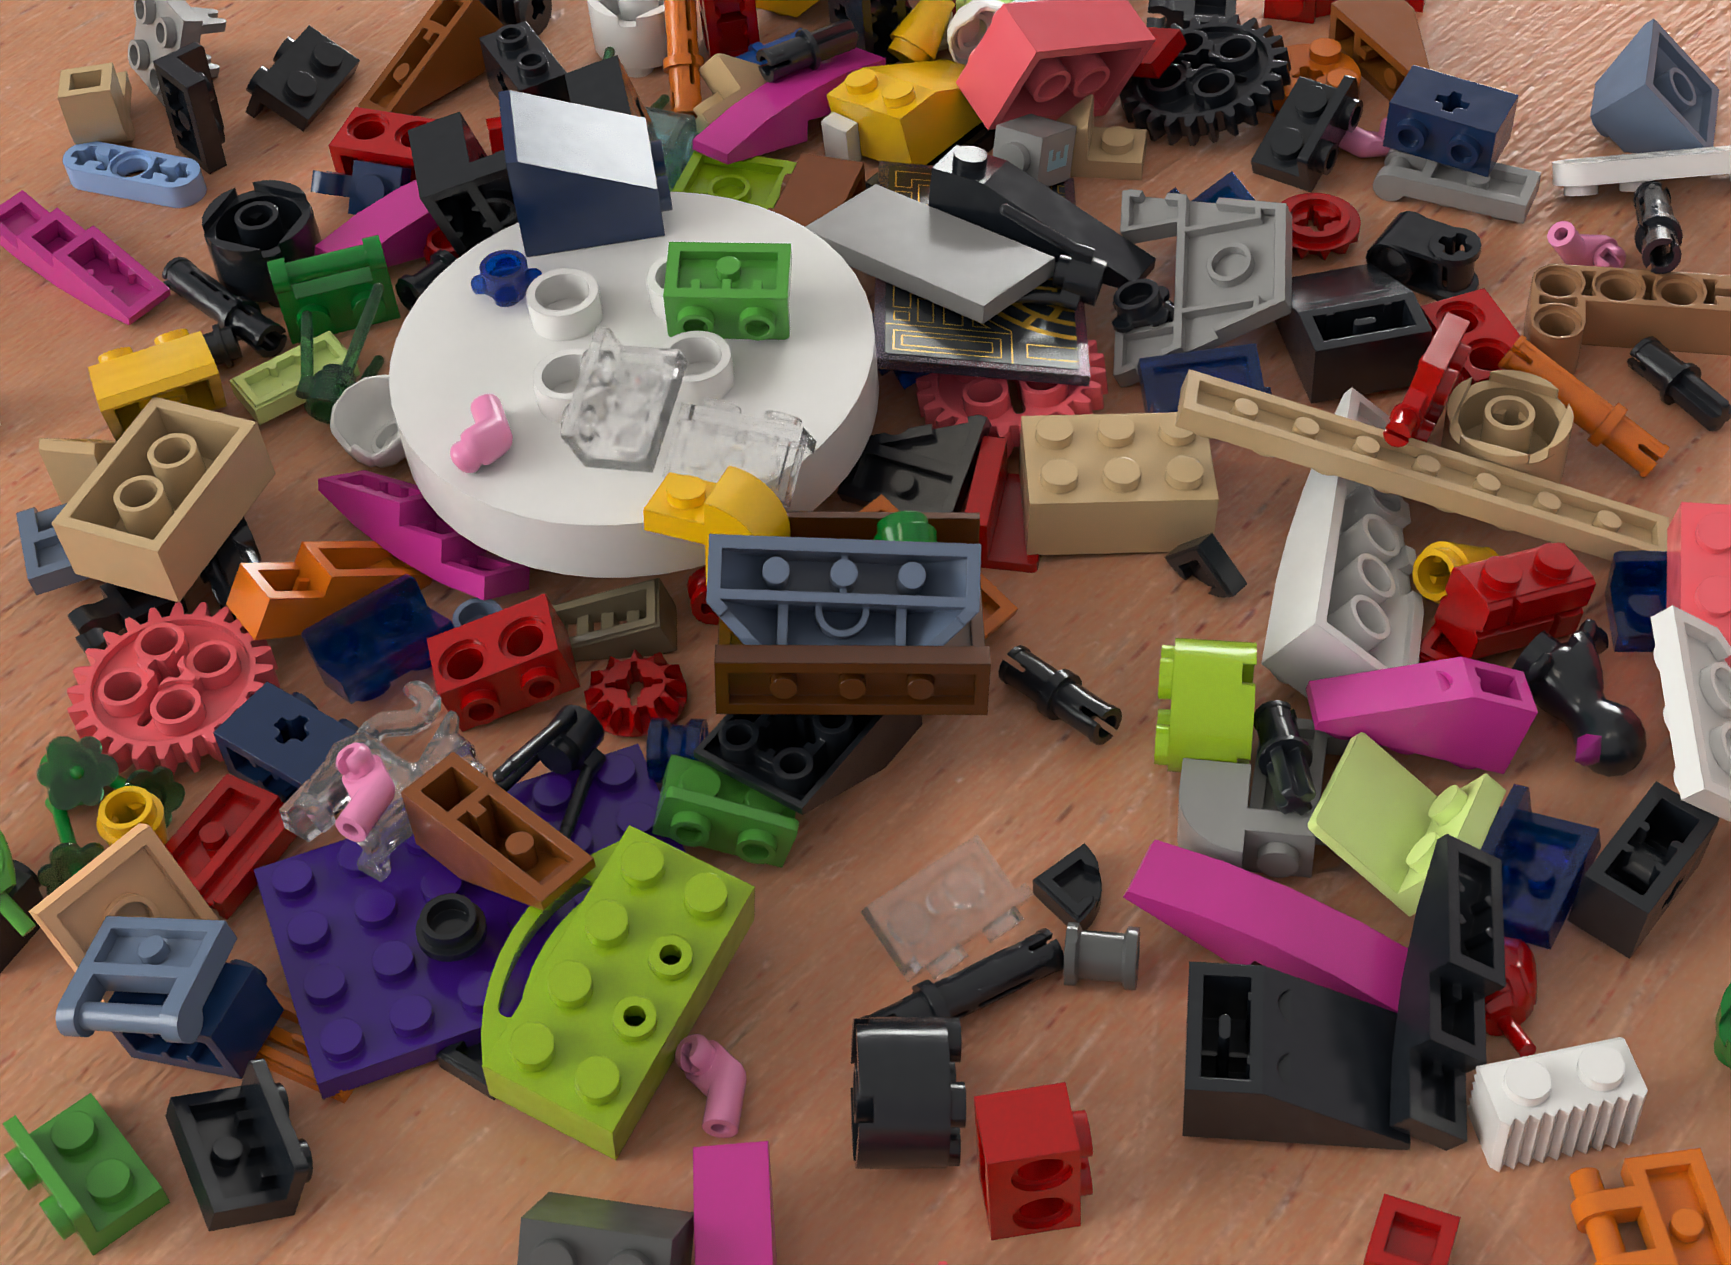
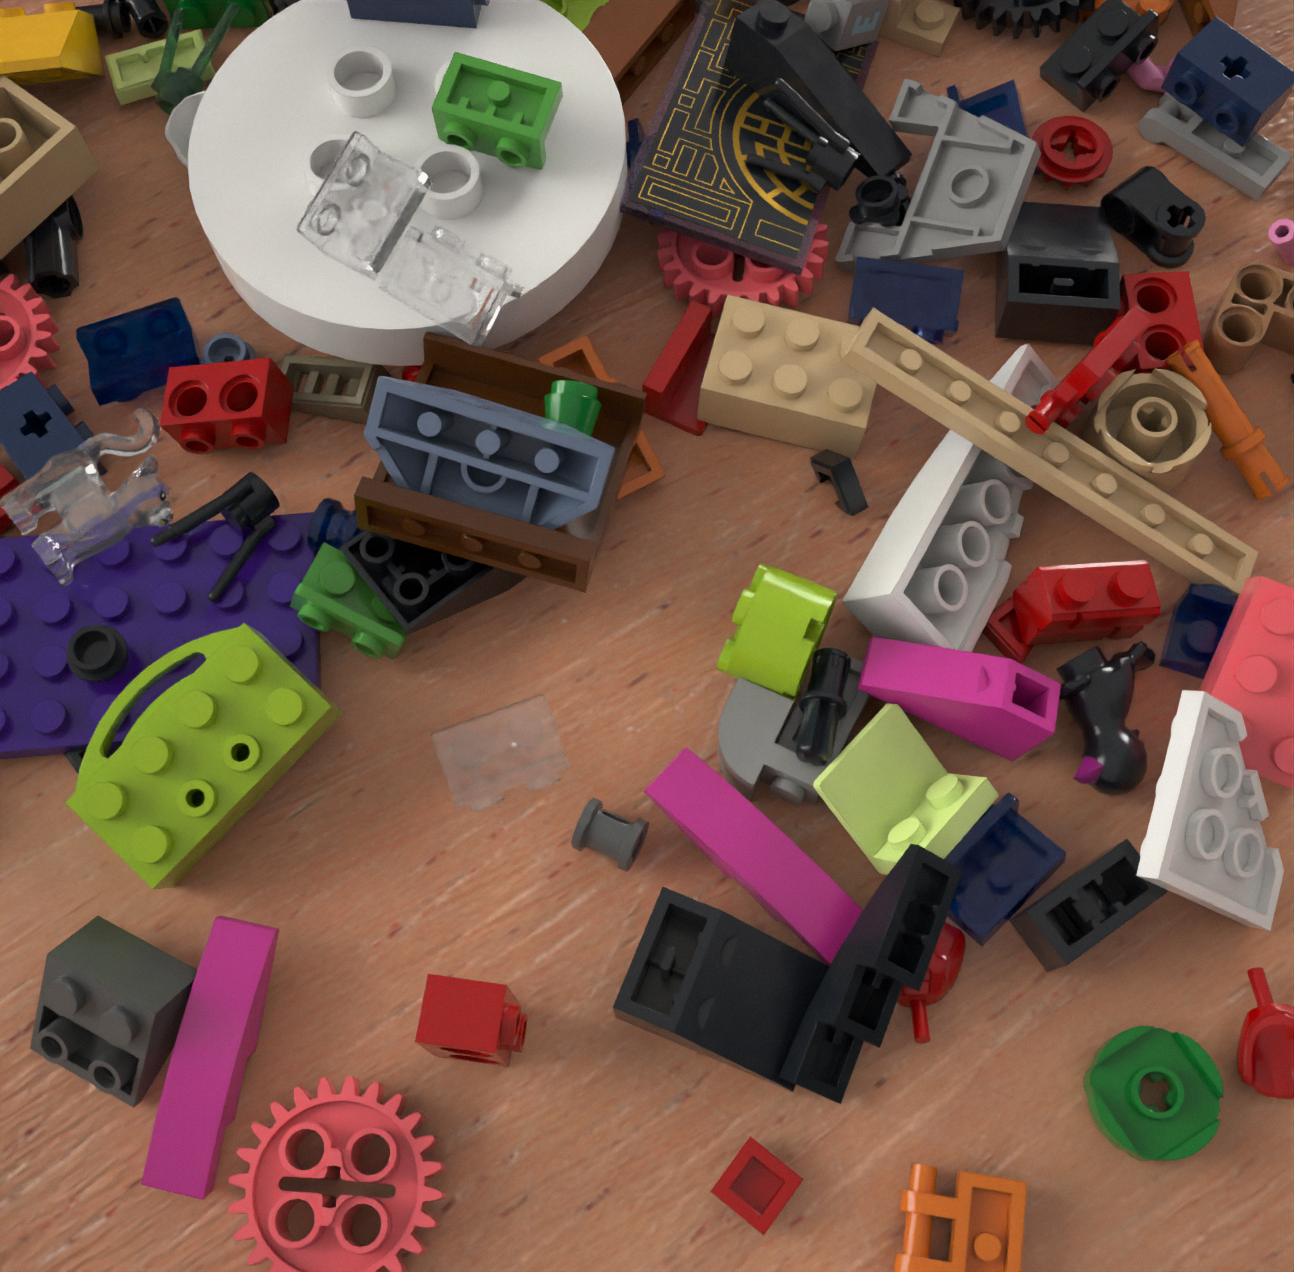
camera: 15 degrees right, 20 degrees up
(324, 578) = (112, 283): orange slope -> none
(368, 787) = (58, 515): bright pink arm -> none
(410, 530) = (181, 231): dark pink slope -> none
(485, 439) = (249, 204): bright pink arm -> none
(491, 835) = (142, 591): dark orange slope -> none
(504, 277) = (319, 39): clear blue plate -> none
(662, 694) = (342, 477): red gear -> none
(718, 1078) = (272, 844): bright pink arm -> none
(733, 506) = (414, 343): yellow brick -> none
(906, 1092) = (395, 921): black brick -> none
(918, 468) = (631, 314): black wing -> none
(932, 253) = (709, 100): light grey tile -> none
(982, 981) = (485, 832): black pin -> none
(1060, 695) = (670, 570): black pin -> none
(1072, 887) = (615, 757): black tile -> none
(1436, 563) = (1047, 548): yellow cone -> none
(1556, 1103) = (926, 1099): white brick -> none

